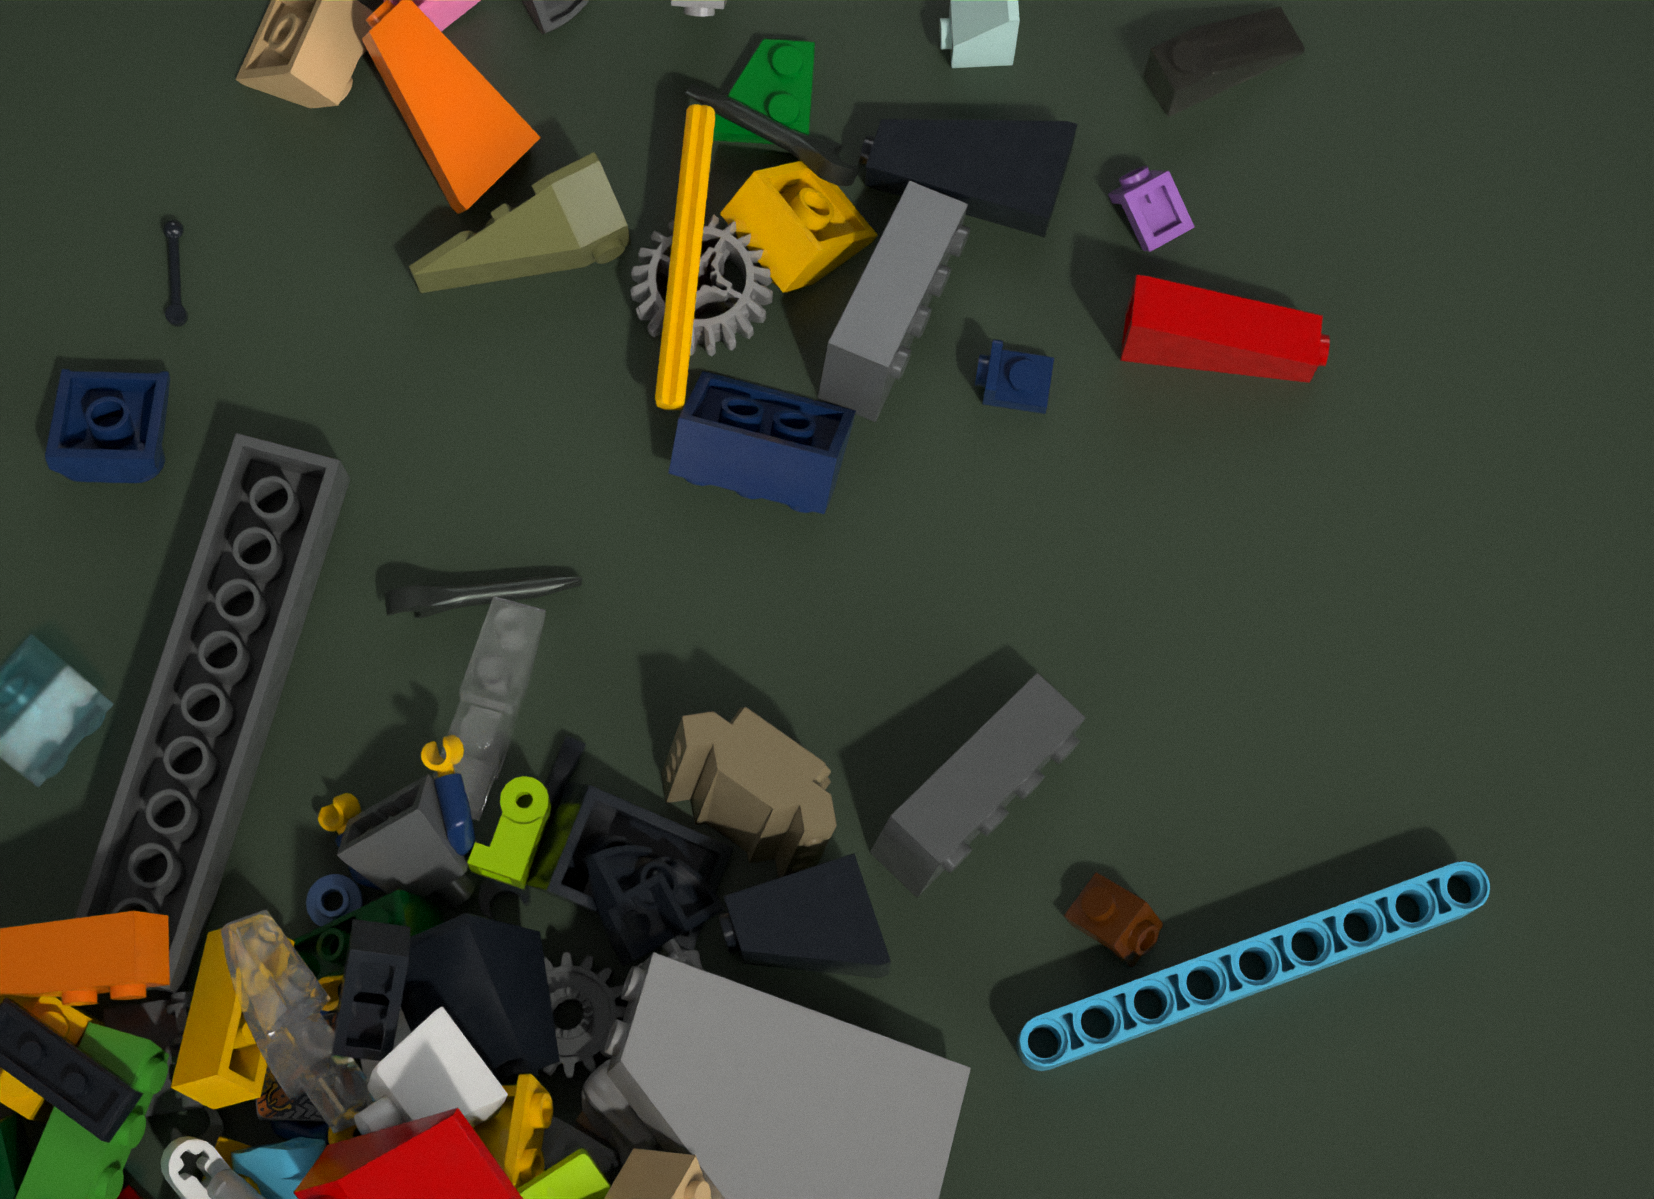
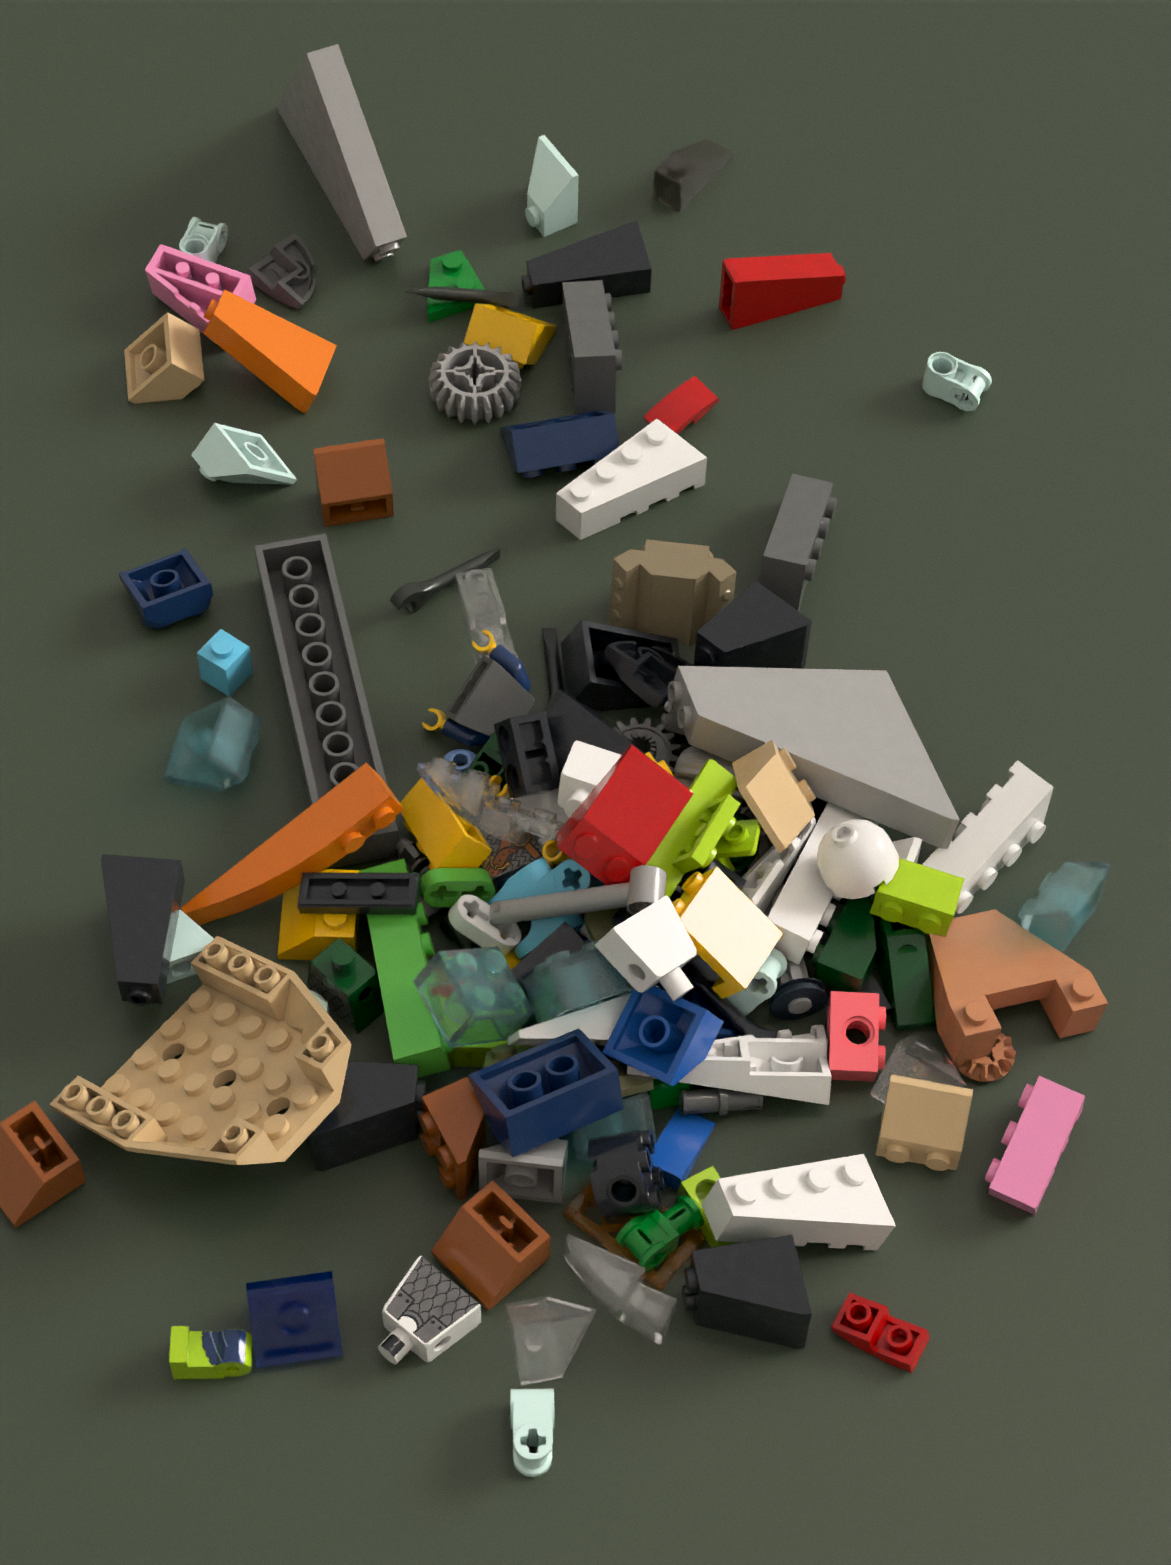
camera: 30 degrees left, 20 degrees down
(117, 585) = (225, 662): none -> medium azure brick
(175, 313) = (167, 525): black hinge -> none
(196, 1117) = (446, 885): none -> bright green beam
(322, 262) = (240, 458): none -> light aqua slope
(434, 382) = (353, 482): none -> dark orange slope
(517, 835) = (548, 670): lime leg -> none
(558, 229) = (370, 391): olive wedge -> none
(685, 257) = (462, 362): yellow axle -> none
(816, 560) = (629, 479): none -> white wedge
(959, 471) = (683, 405): none -> red slope
(1015, 379) = (680, 358): dark blue bracket -> none
(1115, 919) = (913, 575): reddish brown bracket -> none
(1152, 206) = (702, 248): medium lavender bracket -> none
(1276, 951) = (1001, 566): medium azure beam -> none
(1380, 623) = (953, 380): none -> light aqua piece

